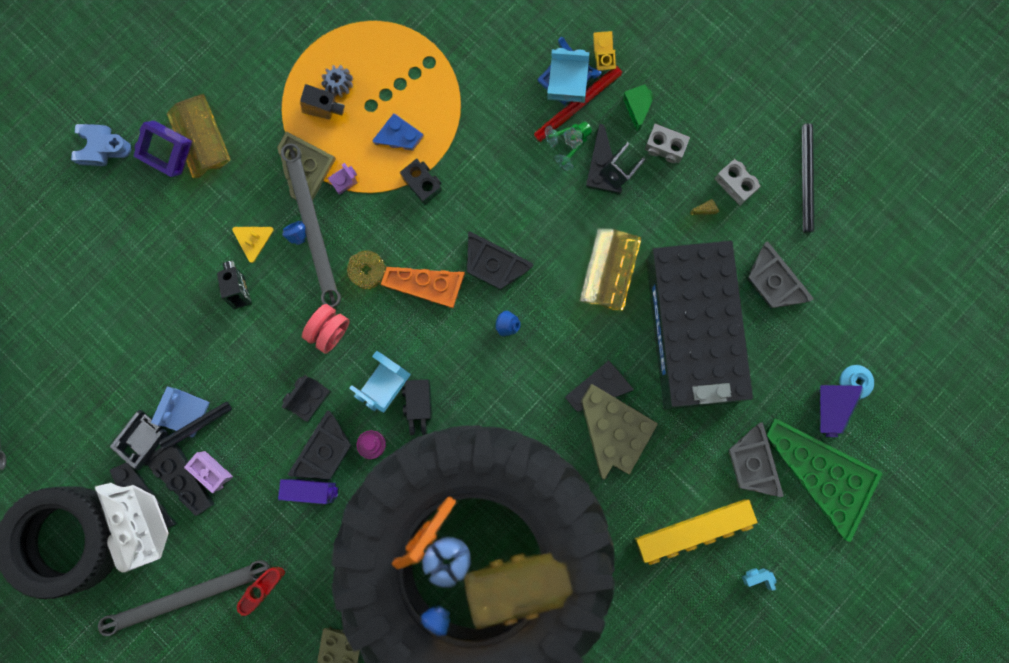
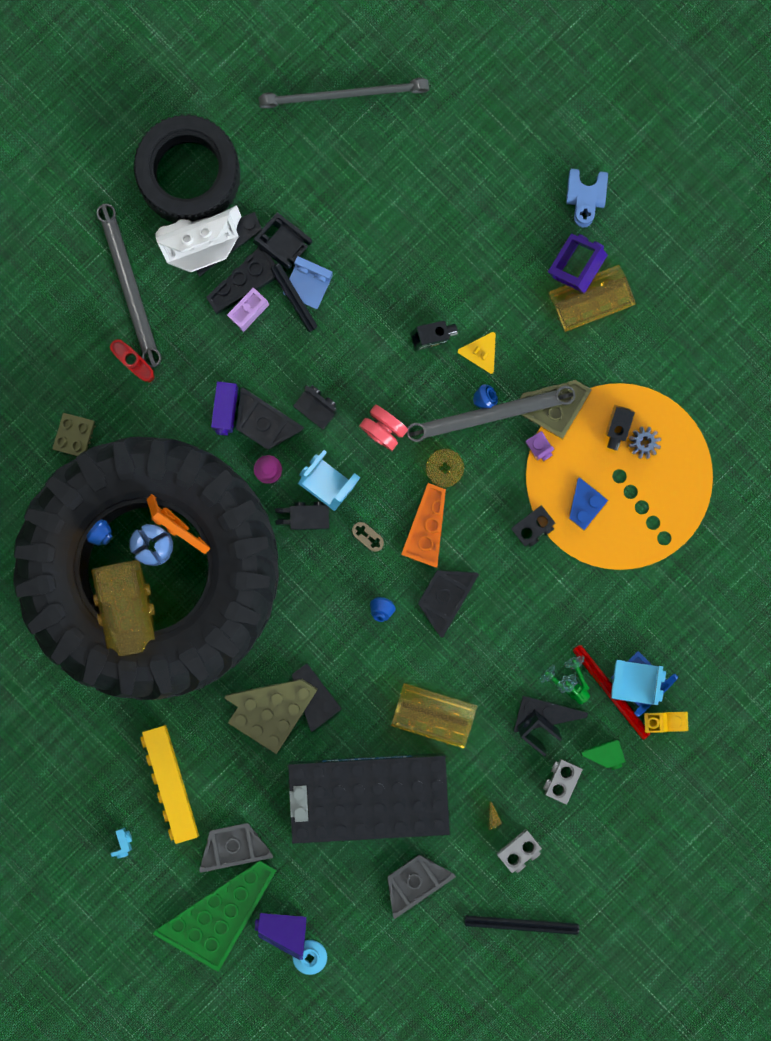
camera: 80 degrees right, 5 degrees up
(433, 338) = (371, 533): none -> dark tan beam

